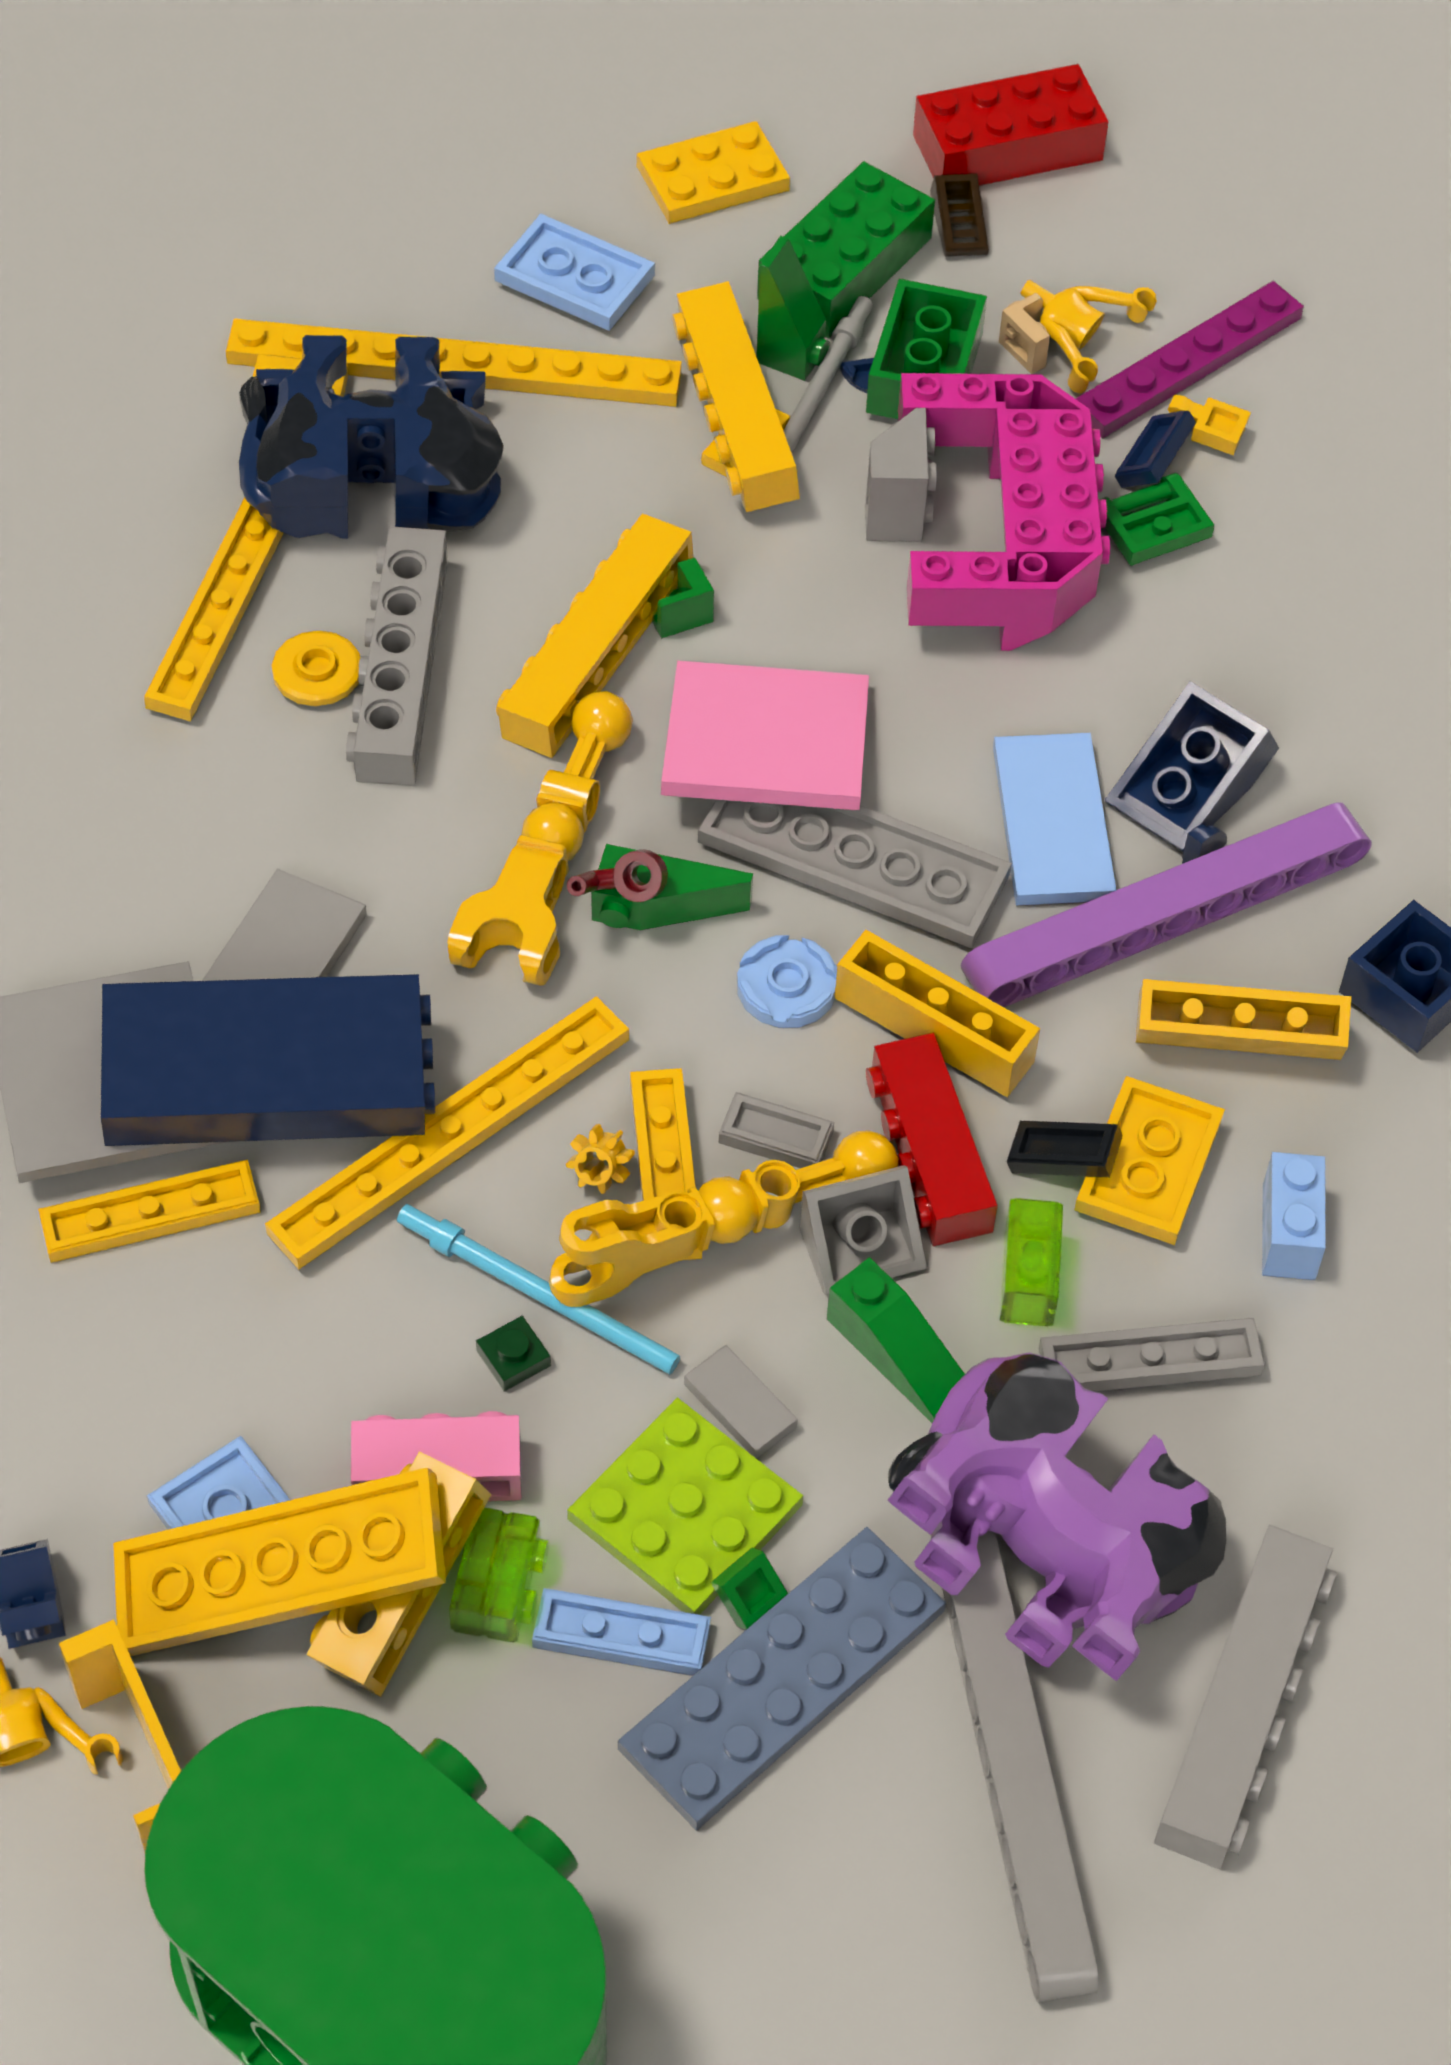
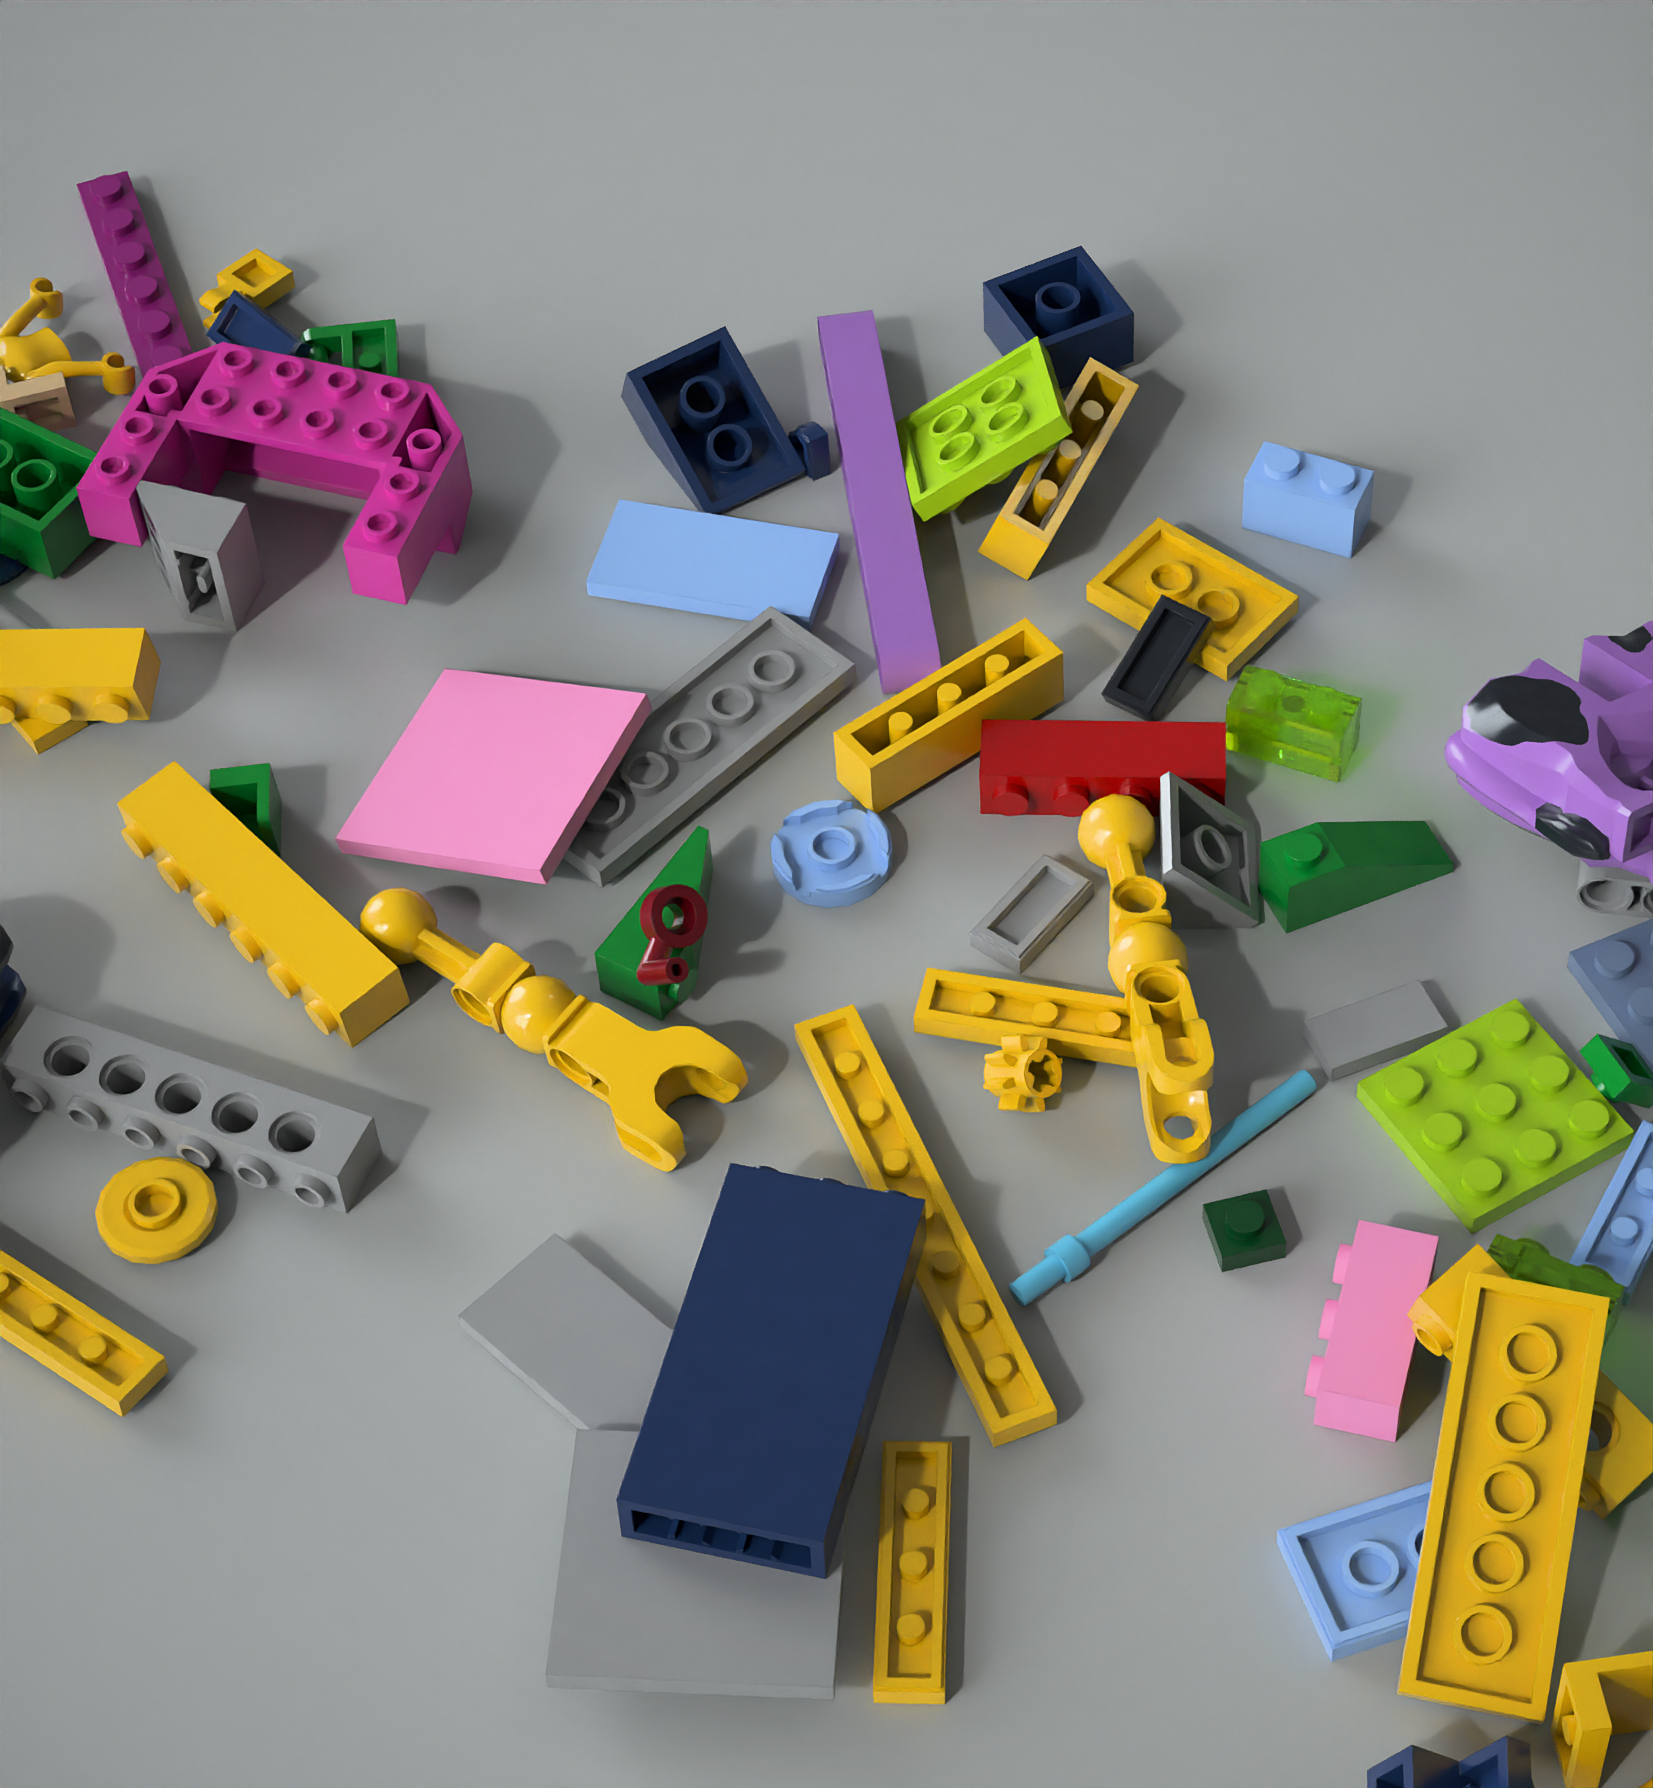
camera: 65 degrees left, 5 degrees down
(1159, 1354) = (1432, 663): light grey plate -> none
(1246, 946) = (982, 429): none -> lime plate

